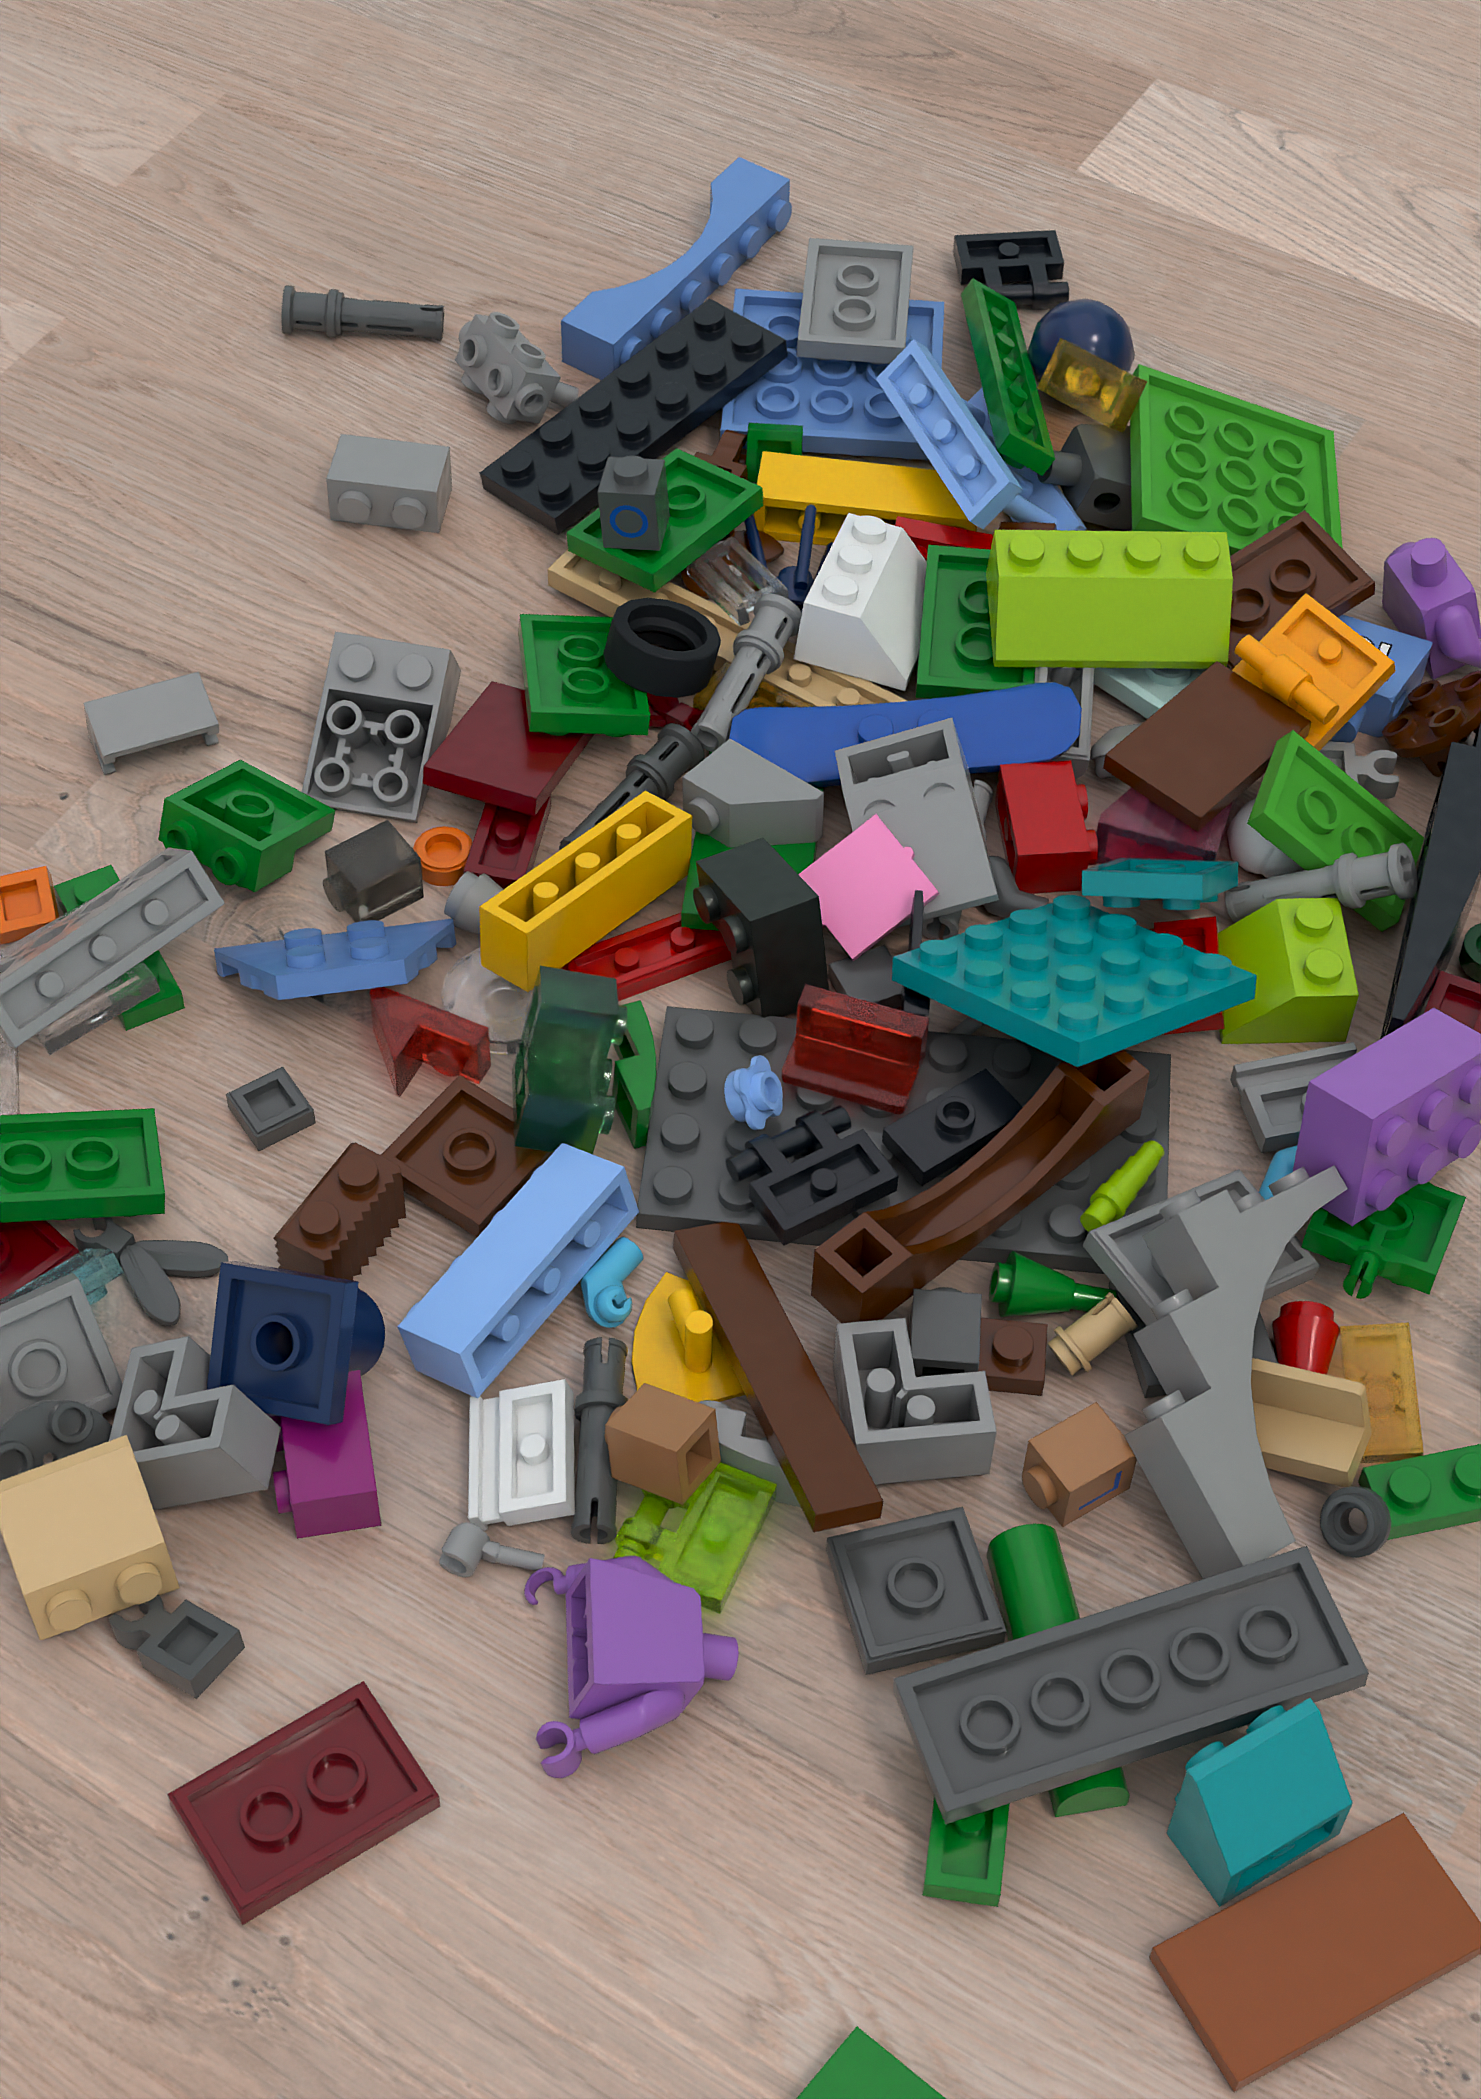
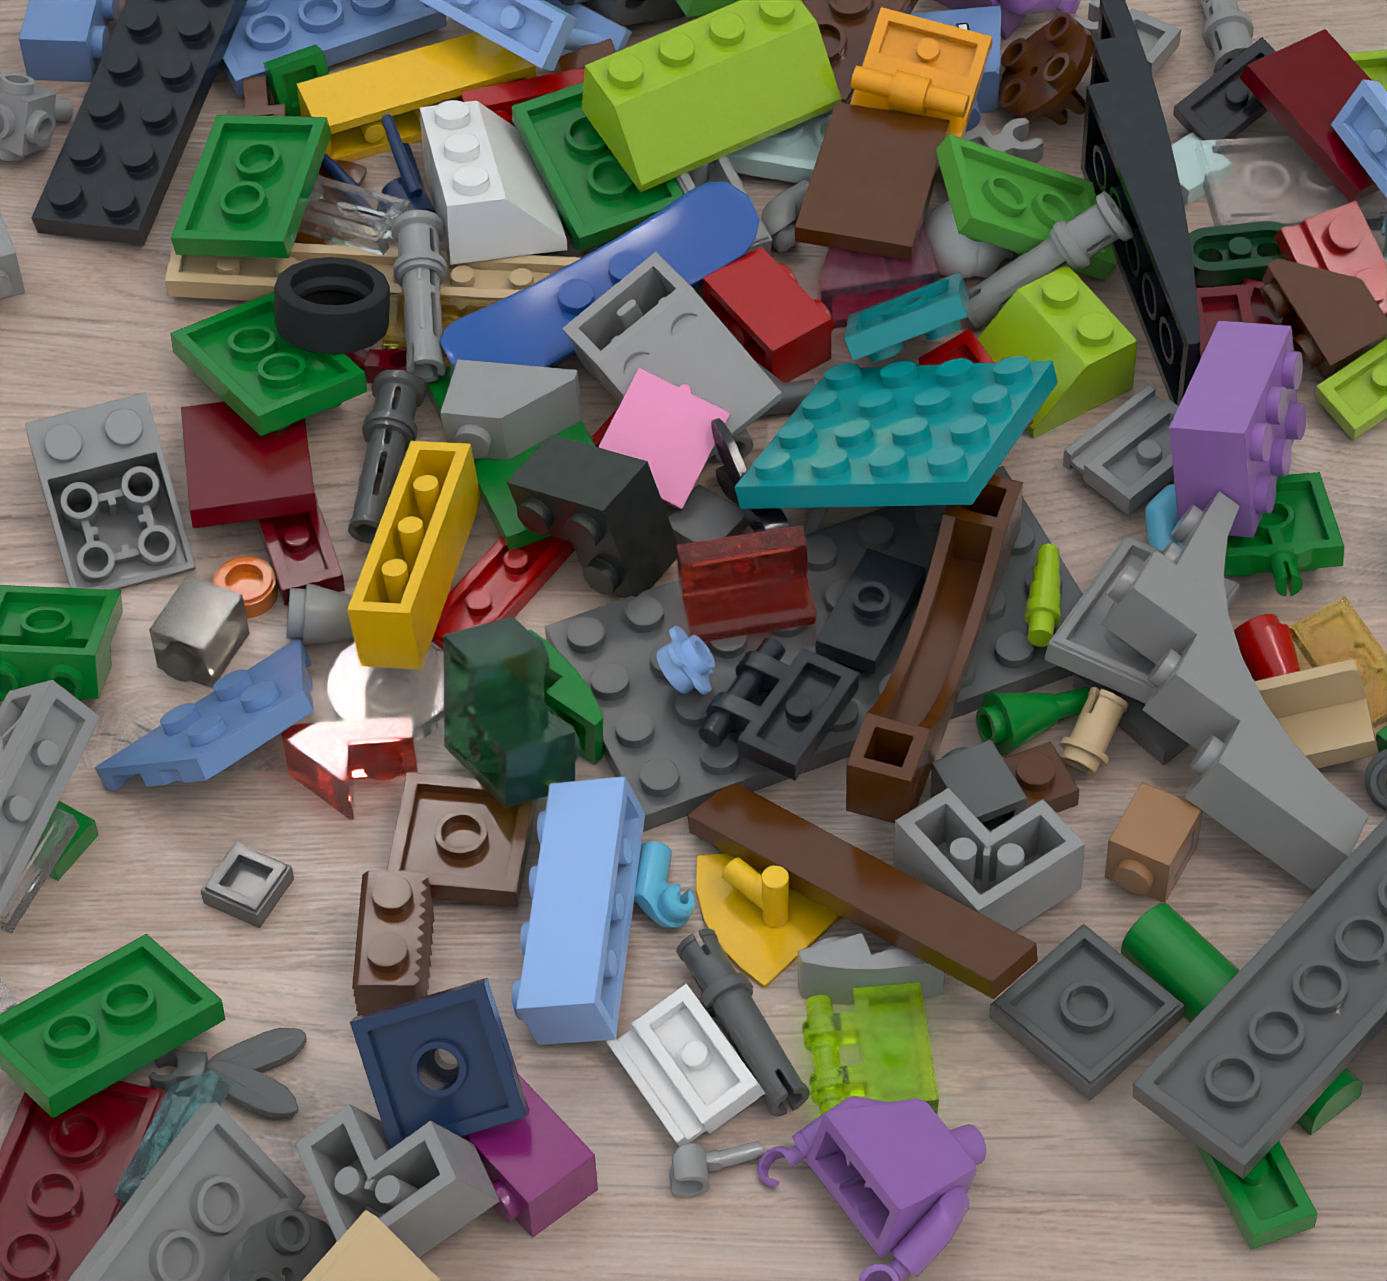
camera: 25 degrees left, 0 degrees up
(633, 503) = (229, 181): dark grey brick -> none
(663, 1443) = (810, 992): medium nougat brick -> none

